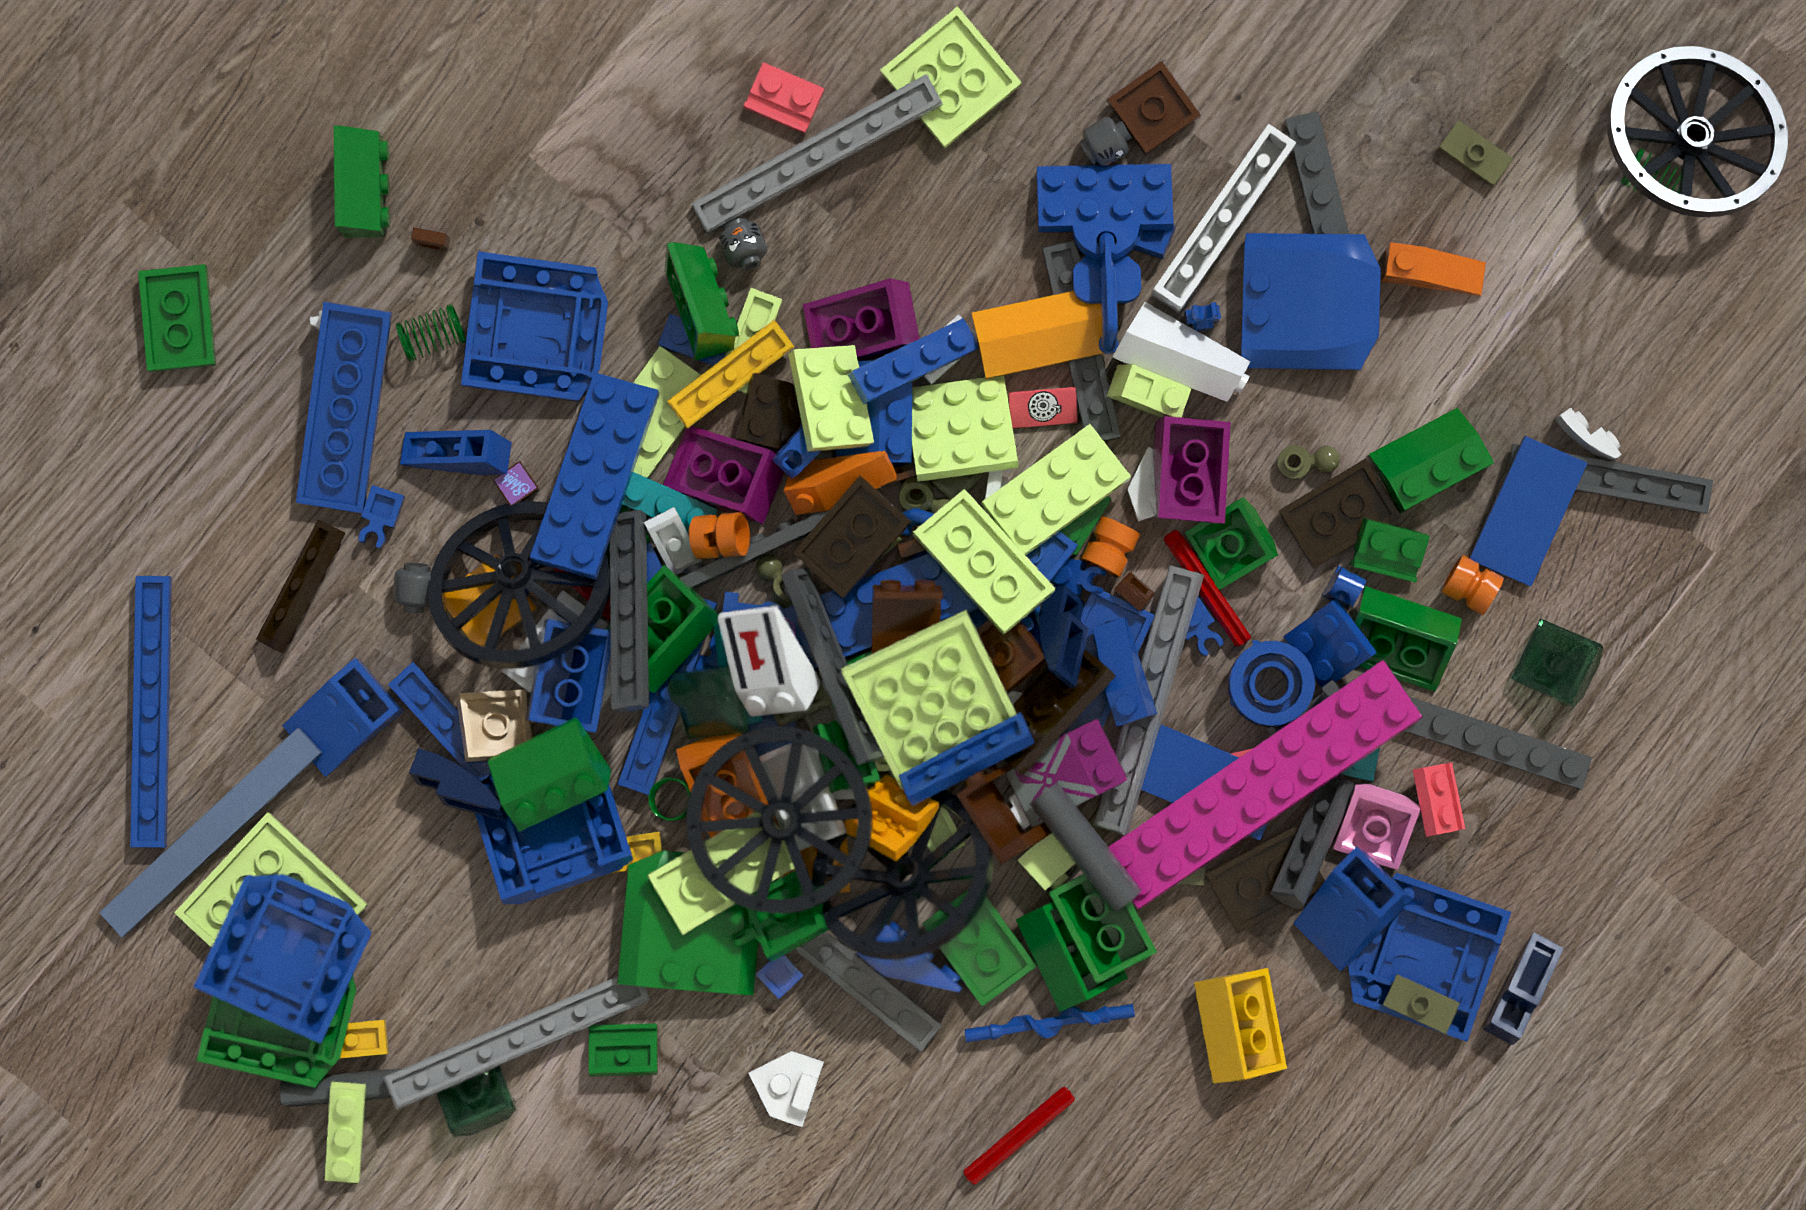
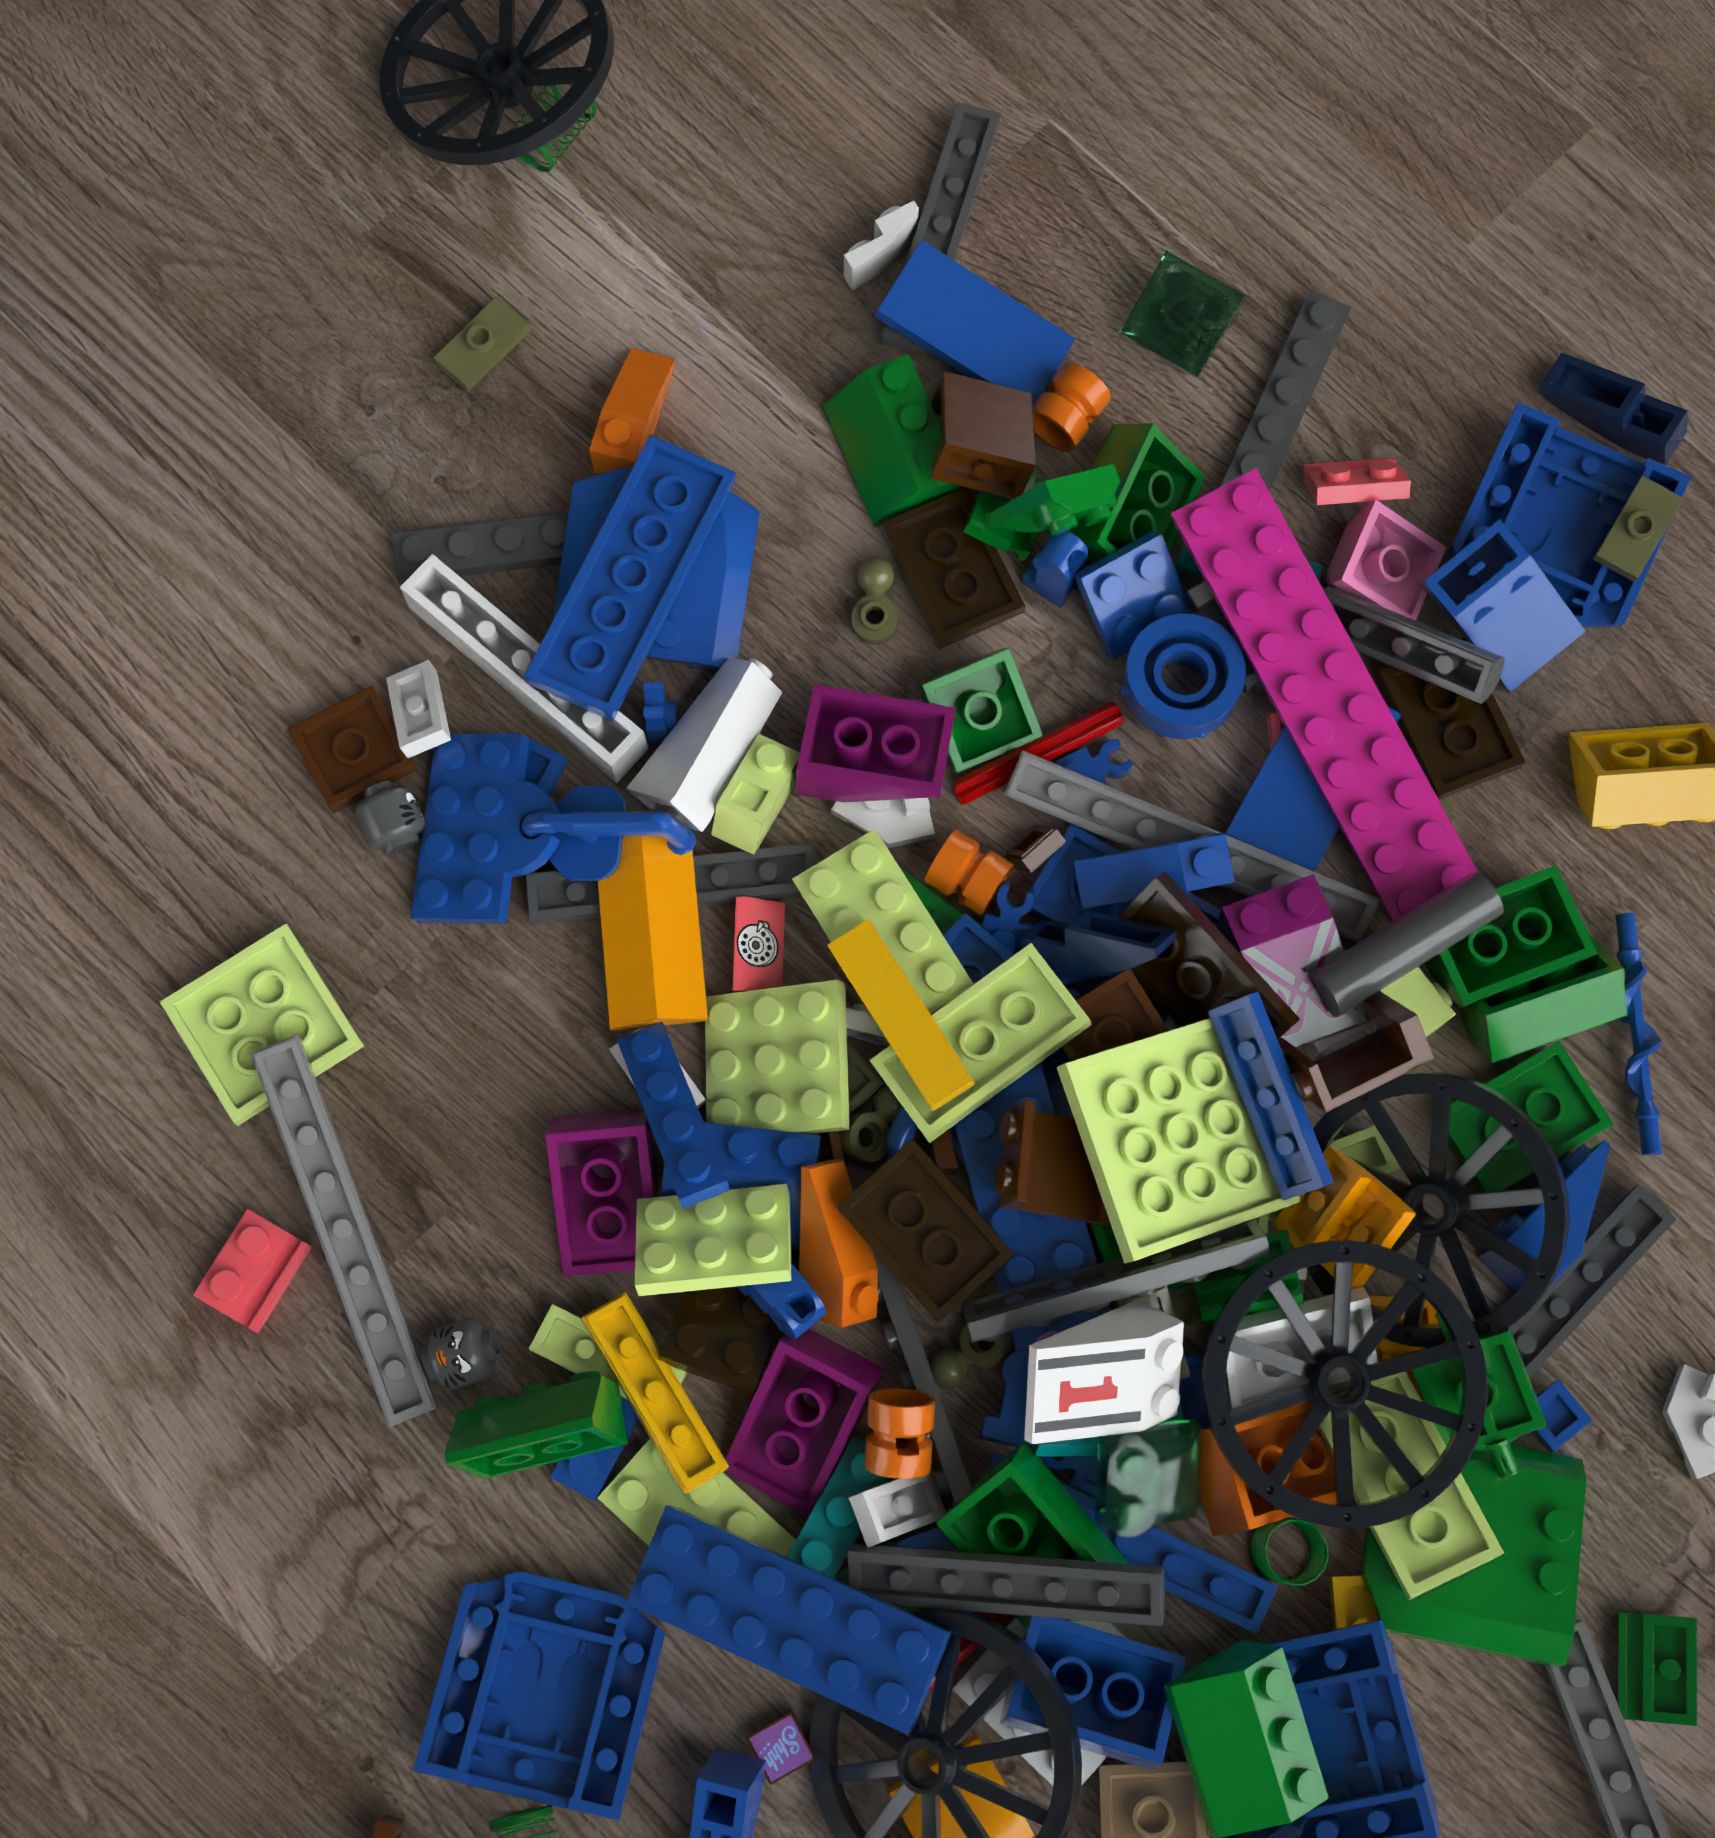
camera: 85 degrees left, 10 degrees down
(996, 505) = (901, 1015): none -> yellow tile
(1186, 149) = (418, 709): none -> white plate
(1292, 284) = (630, 578): none -> blue plate
(1383, 583) = (1062, 502): none -> green slope
(1435, 523) = (984, 436): none -> reddish brown panel

